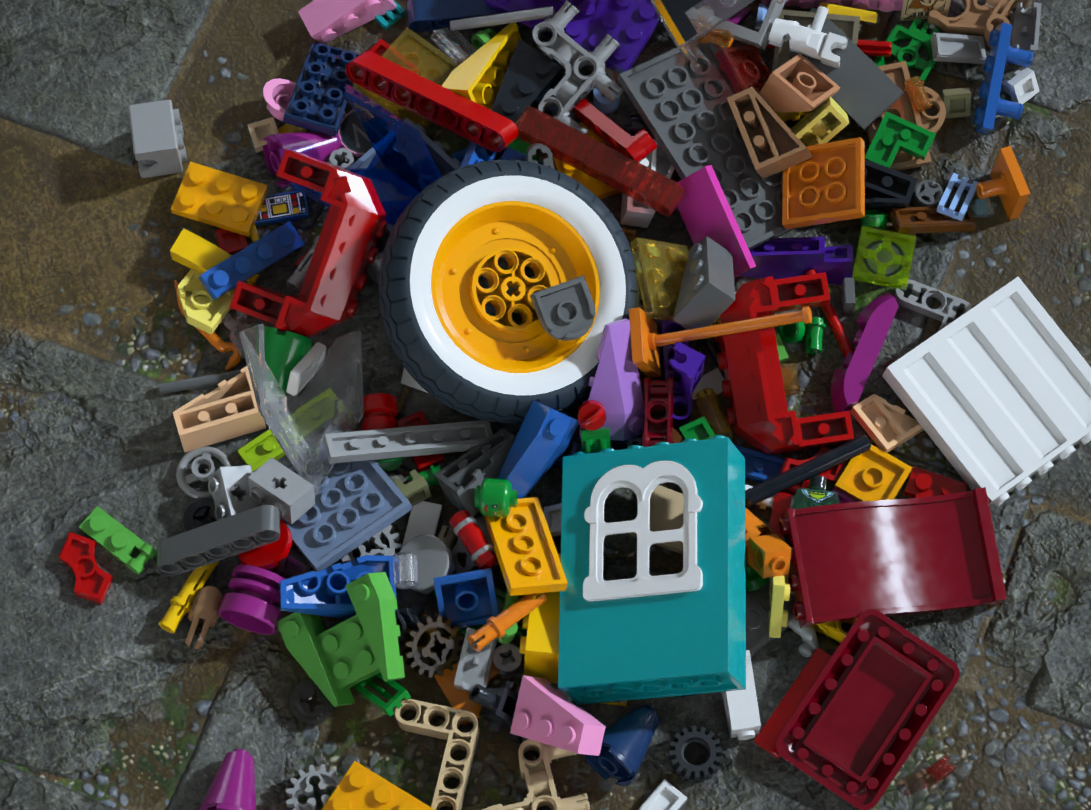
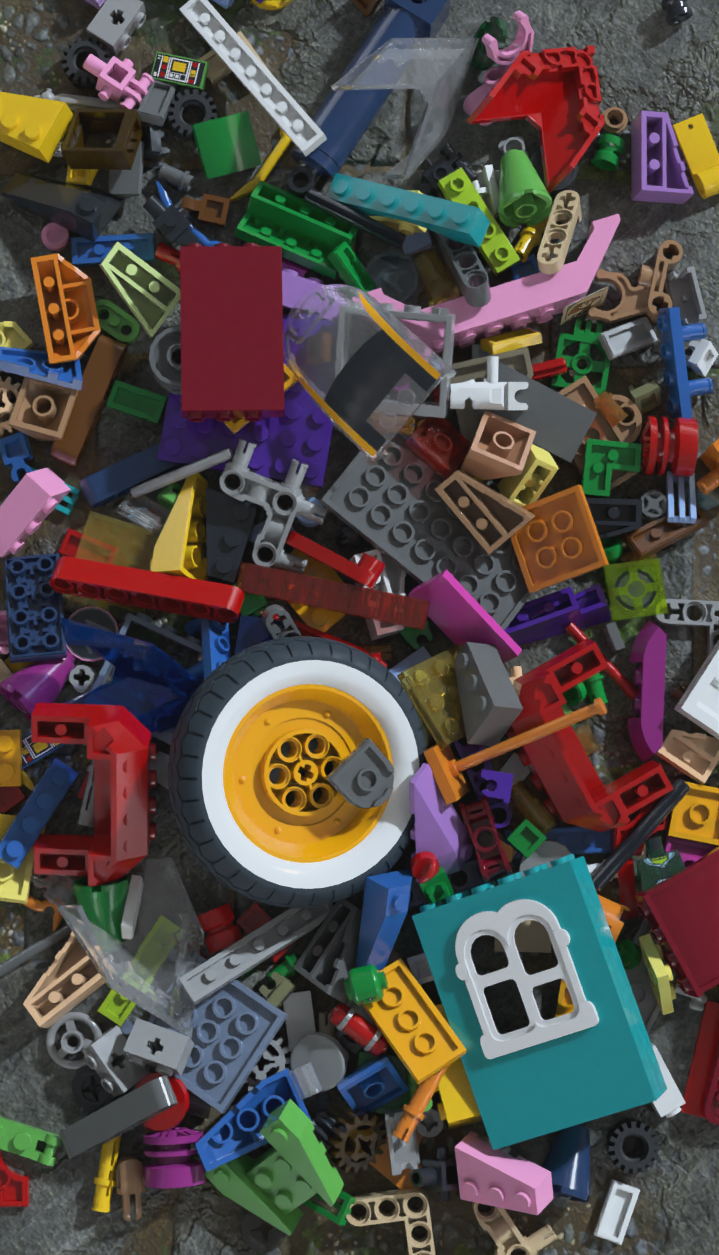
camera: 25 degrees left, 15 degrees up
(662, 226) = (410, 635): none -> green tile
(769, 555) = (640, 944): orange brick -> none
(961, 146) = (670, 446): none -> red wheel

